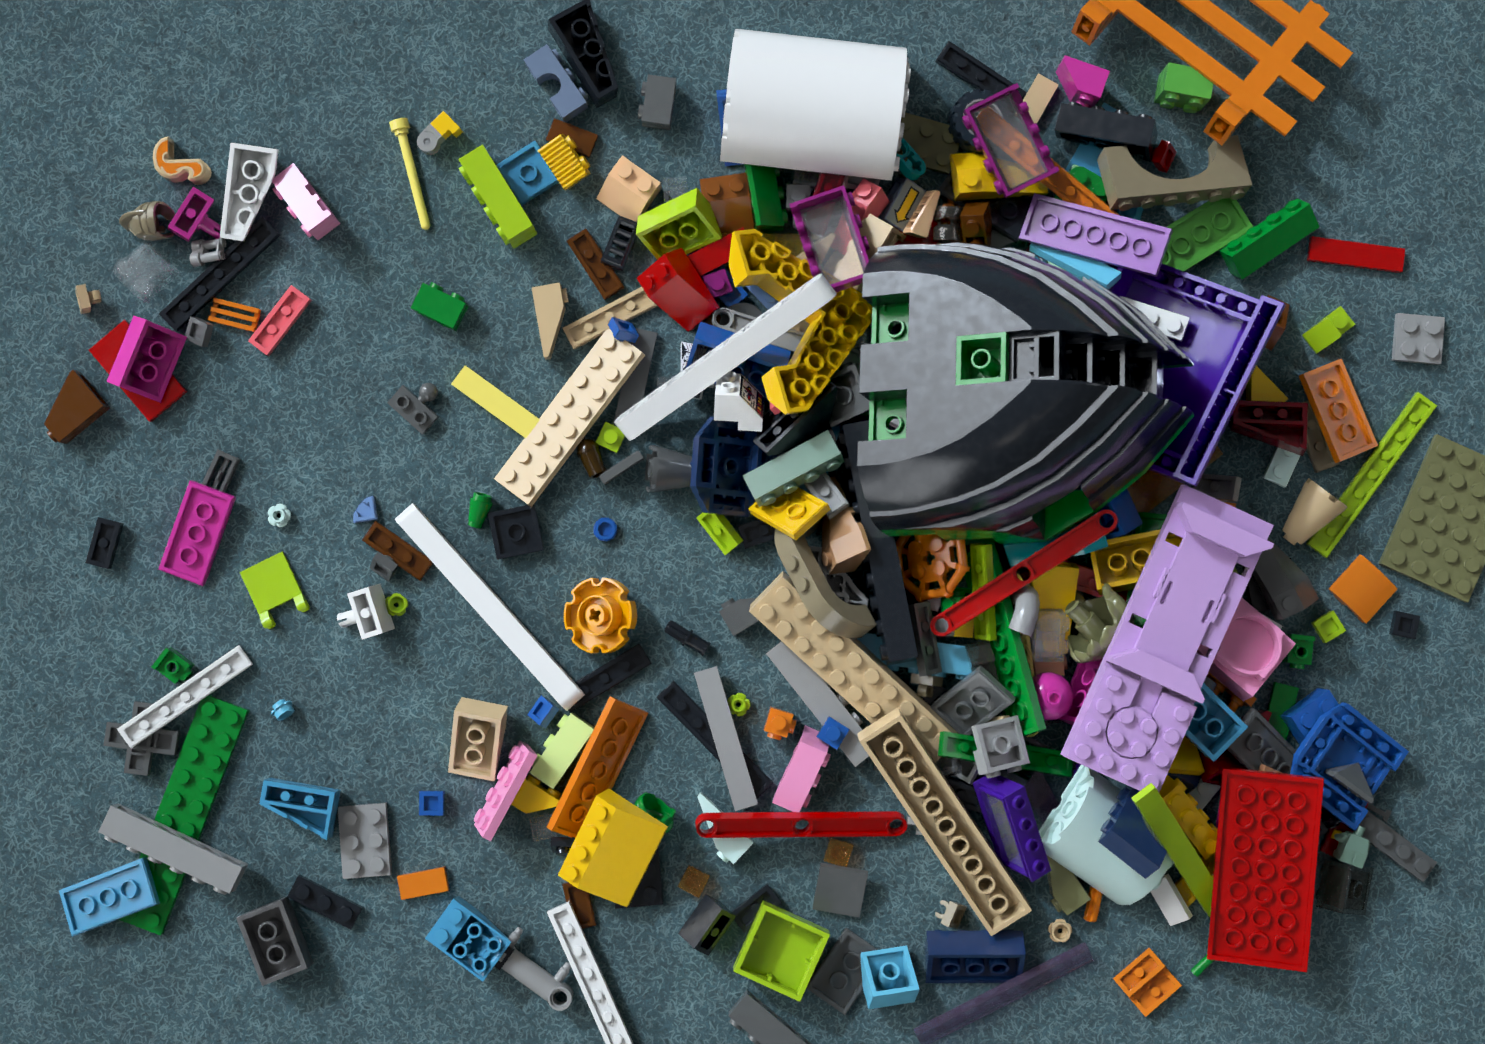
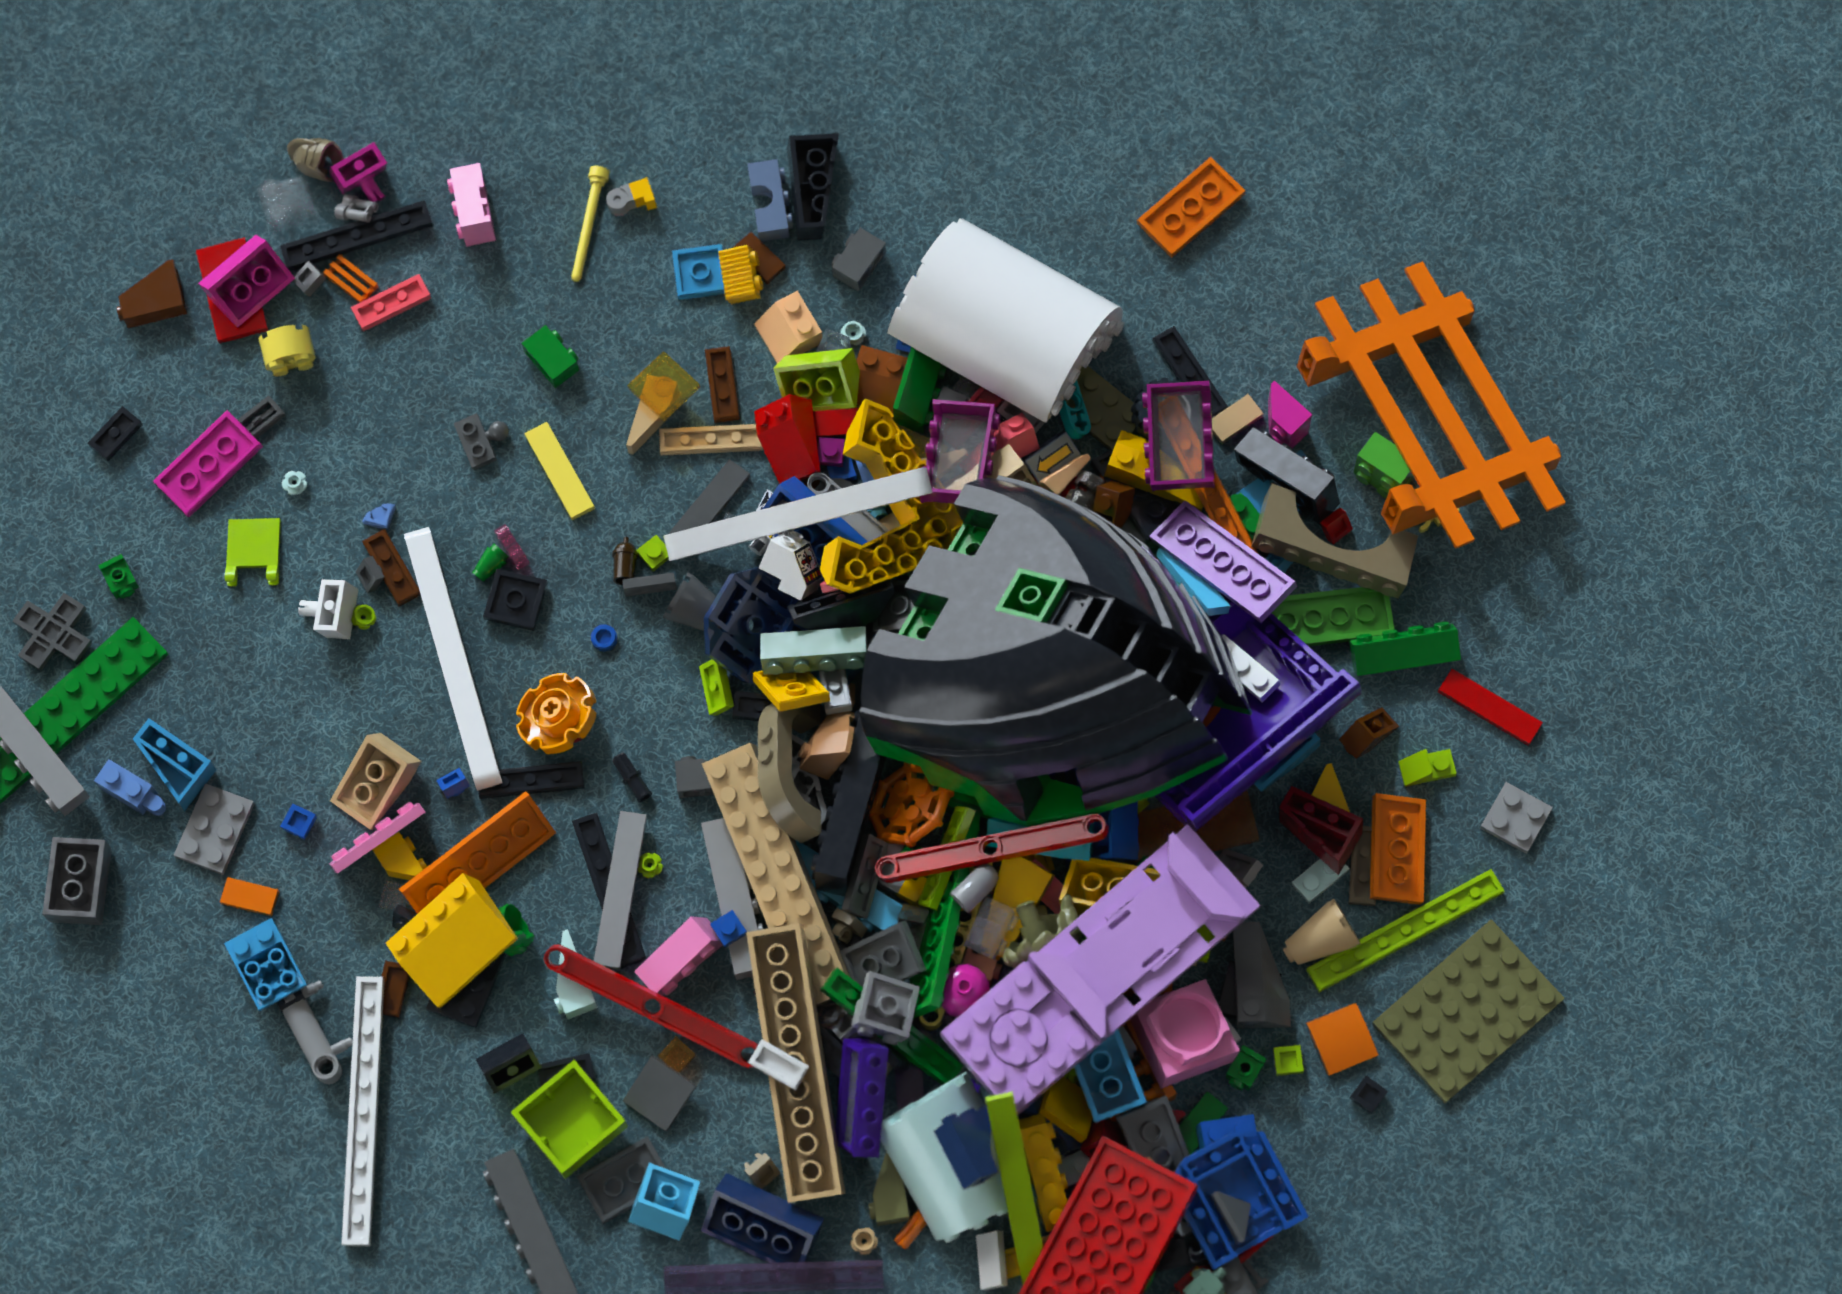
camera: 30 degrees right, 15 degrees down
(86, 298) = (219, 202): tan tile -> none
(178, 169) = (369, 124): tan animal -> none
(185, 696) = (114, 610): white tile -> none
(213, 404) = (287, 349): none -> light yellow brick
(247, 183) = (426, 162): white wedge -> none
(277, 842) = (129, 789): none -> medium blue brick
(282, 709) = (201, 666): medium azure plate -> none
(325, 902) = (144, 871): black plate -> none
(490, 488) = (511, 547): none -> clear pink beam
(500, 201) = (656, 278): lime brick -> none
(550, 292) = (663, 386): none -> clear yellow tile
(561, 749) = (449, 827): yellowish green brick -> none
(569, 417) = (623, 514): plate -> none
(619, 230) = (766, 361): black slope -> none
(623, 330) = (716, 455): blue plate -> none
(684, 163) = (856, 327): none -> light aqua plate
(693, 881) = (517, 1017): clear orange plate -> none
(779, 723) = (680, 899): orange brick -> none
(936, 835) = (778, 1064): none -> white tile

